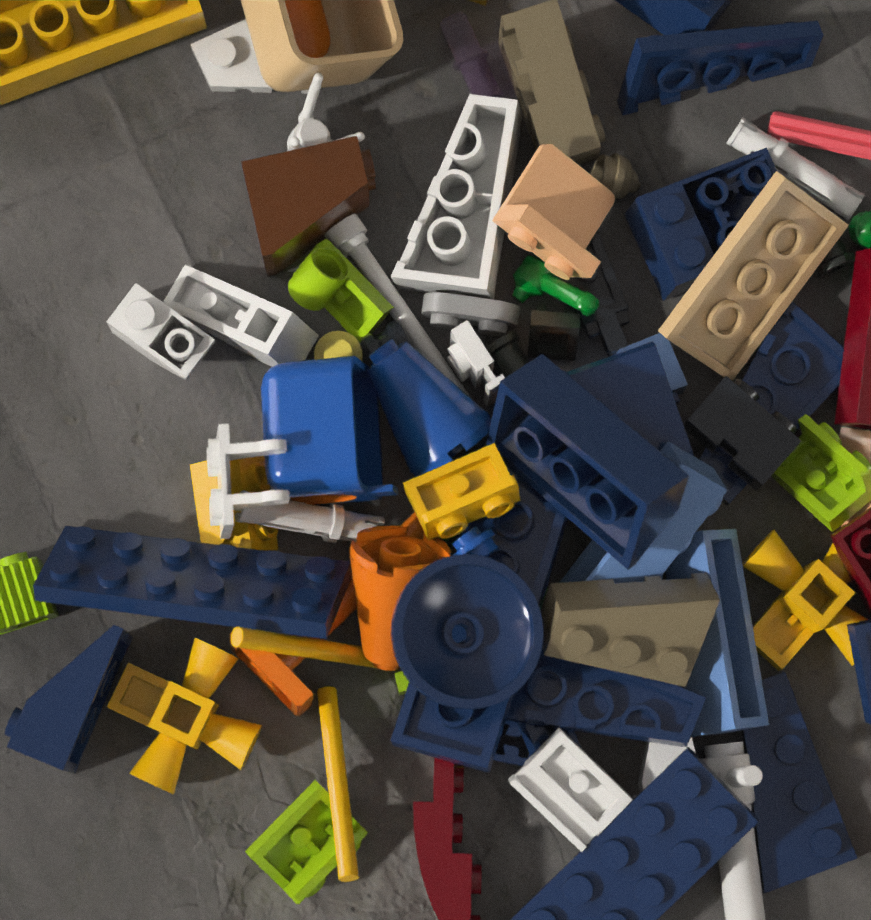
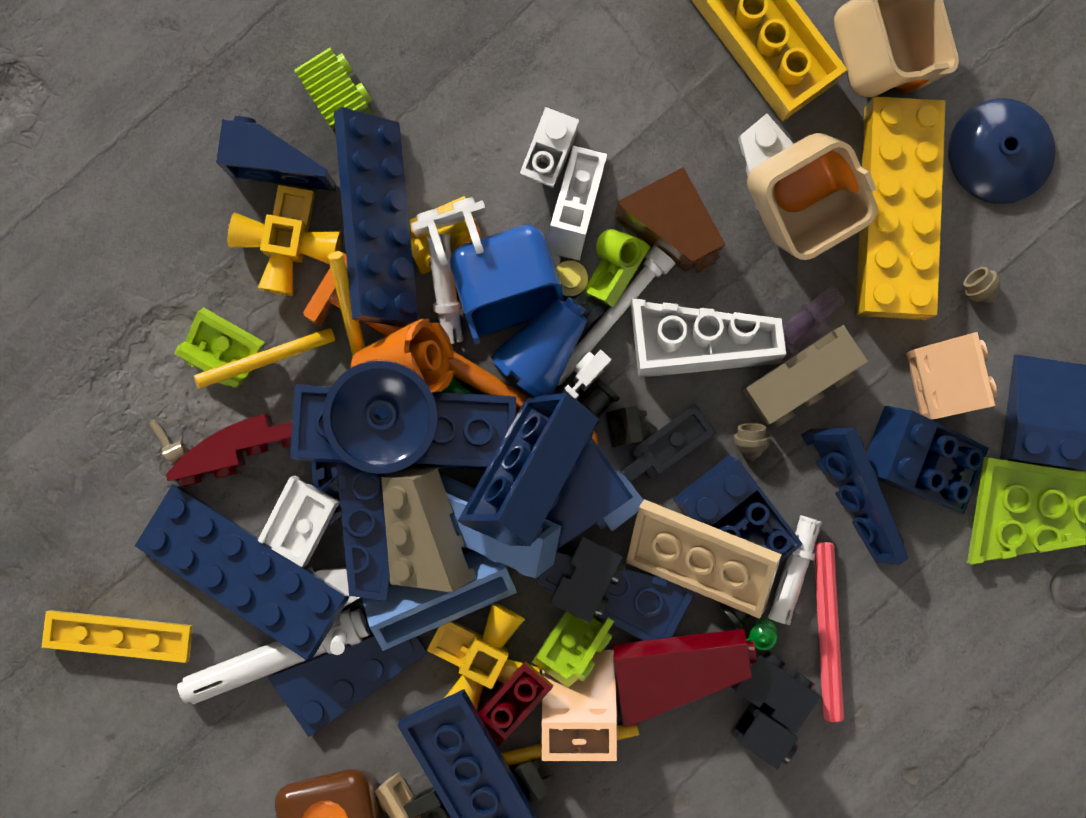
camera: 75 degrees right, 5 degrees up
(309, 130) = (724, 215): white plant -> none
(450, 310) = (626, 378): light grey plate -> none
(462, 493) = (485, 389): yellow bracket -> none
(476, 543) = (448, 407): blue plate -> none
(534, 279) = (663, 404): green piece -> none
(556, 212) = (710, 403): light nougat bracket -> none

